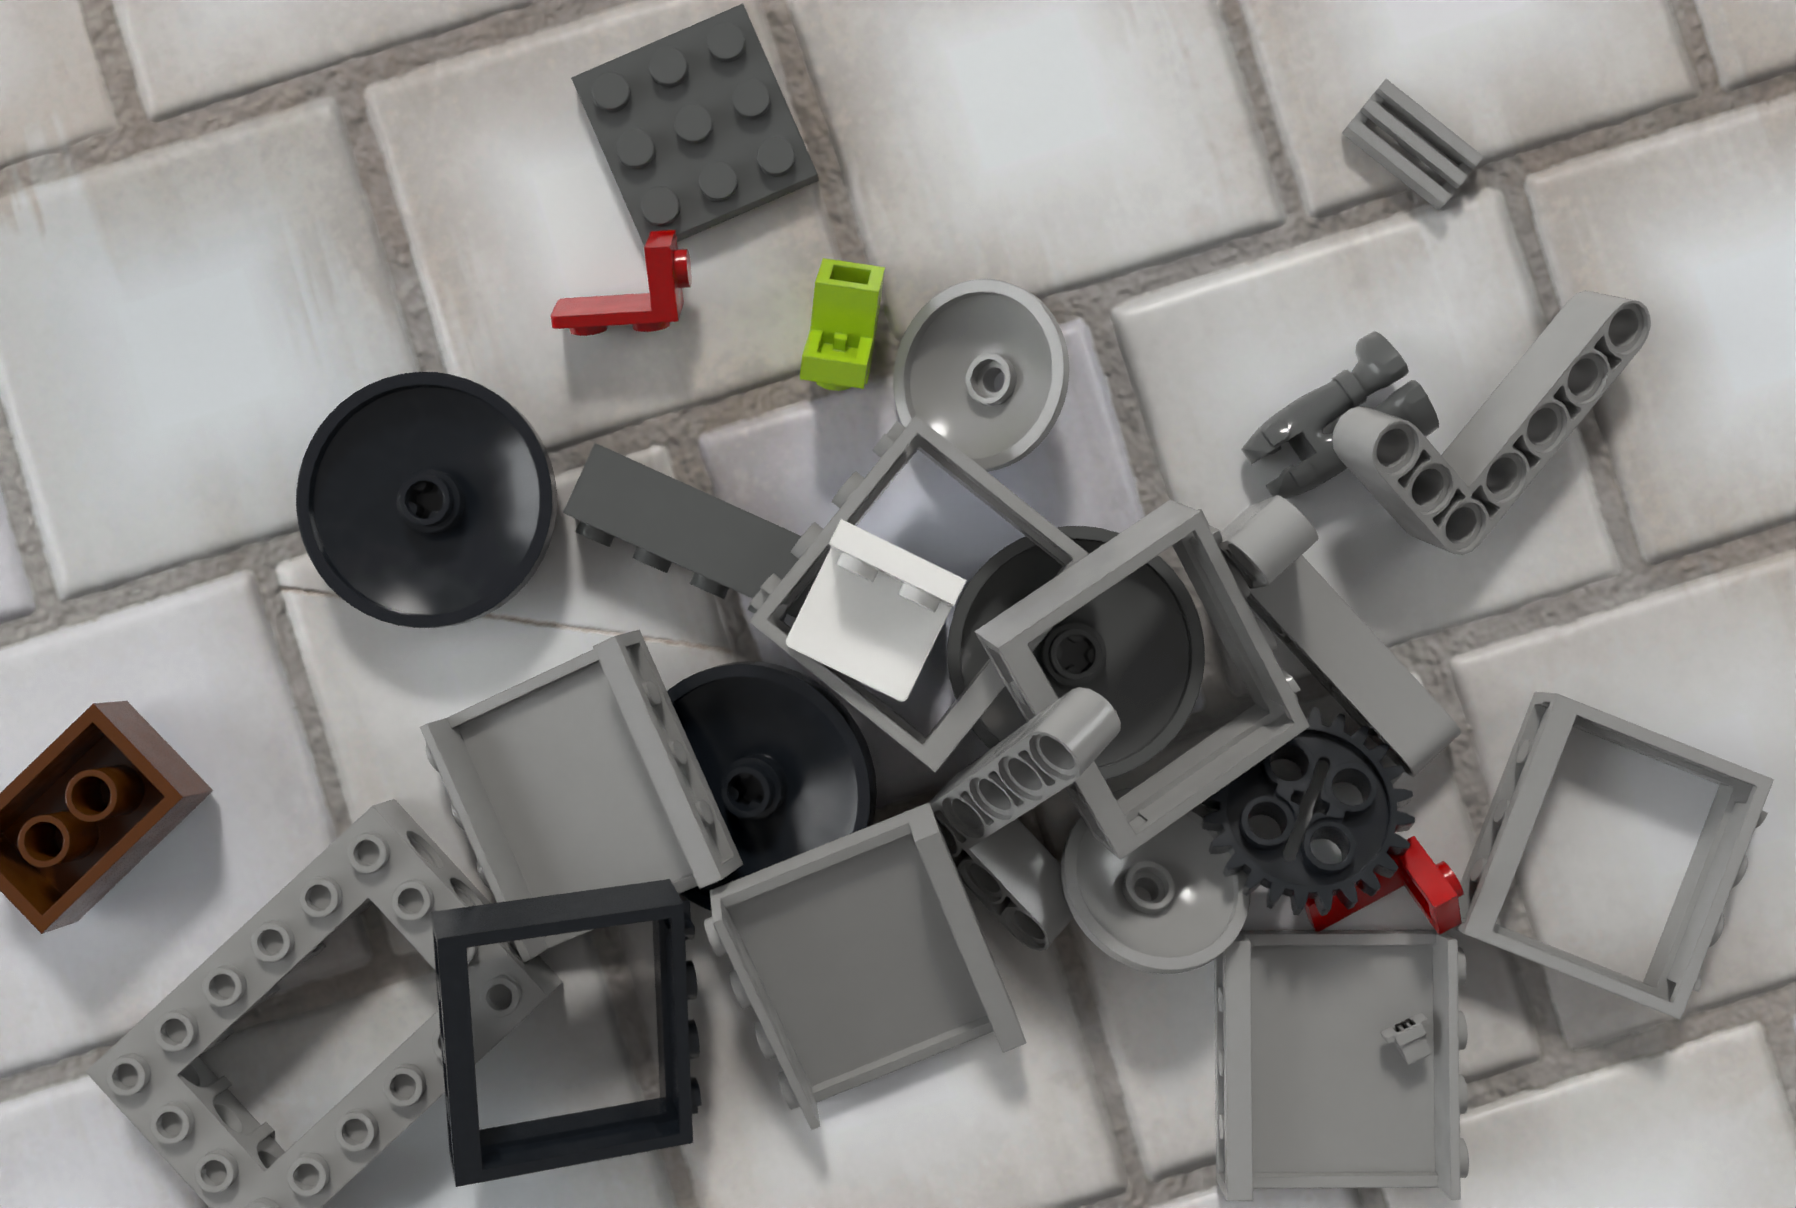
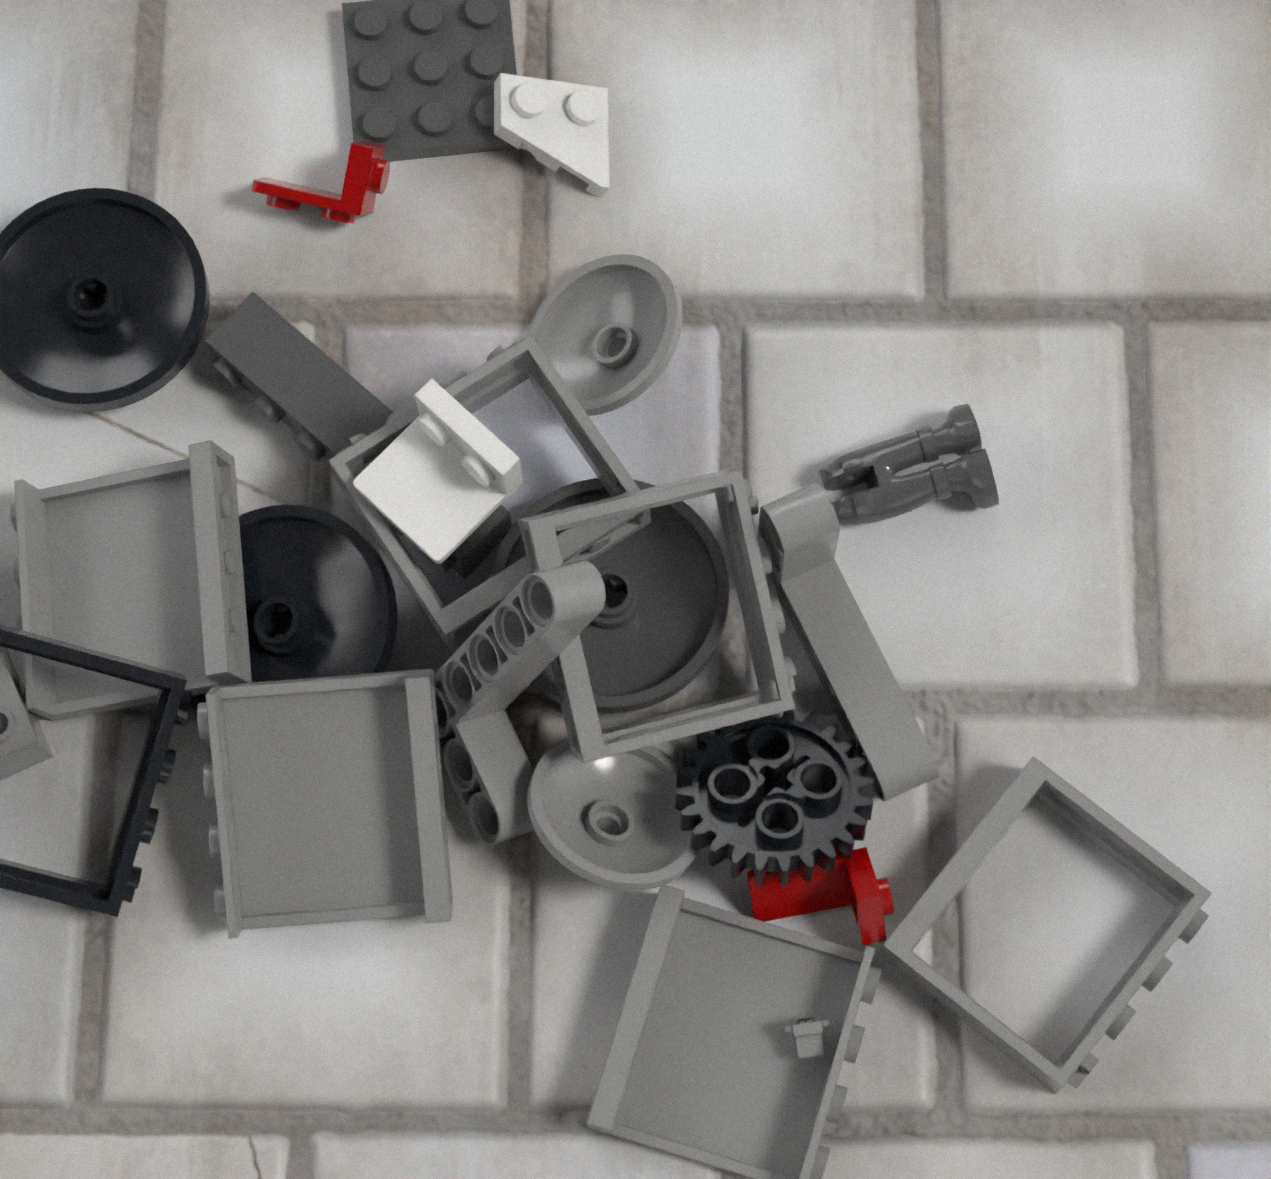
camera: 15 degrees right, 15 degrees down
(842, 325) = (501, 262): lime brick -> none
(851, 148) = (558, 124): none -> white wing
(1426, 126) = (1025, 226): light grey tile -> none
(1468, 489) = (1047, 519): light grey beam -> none

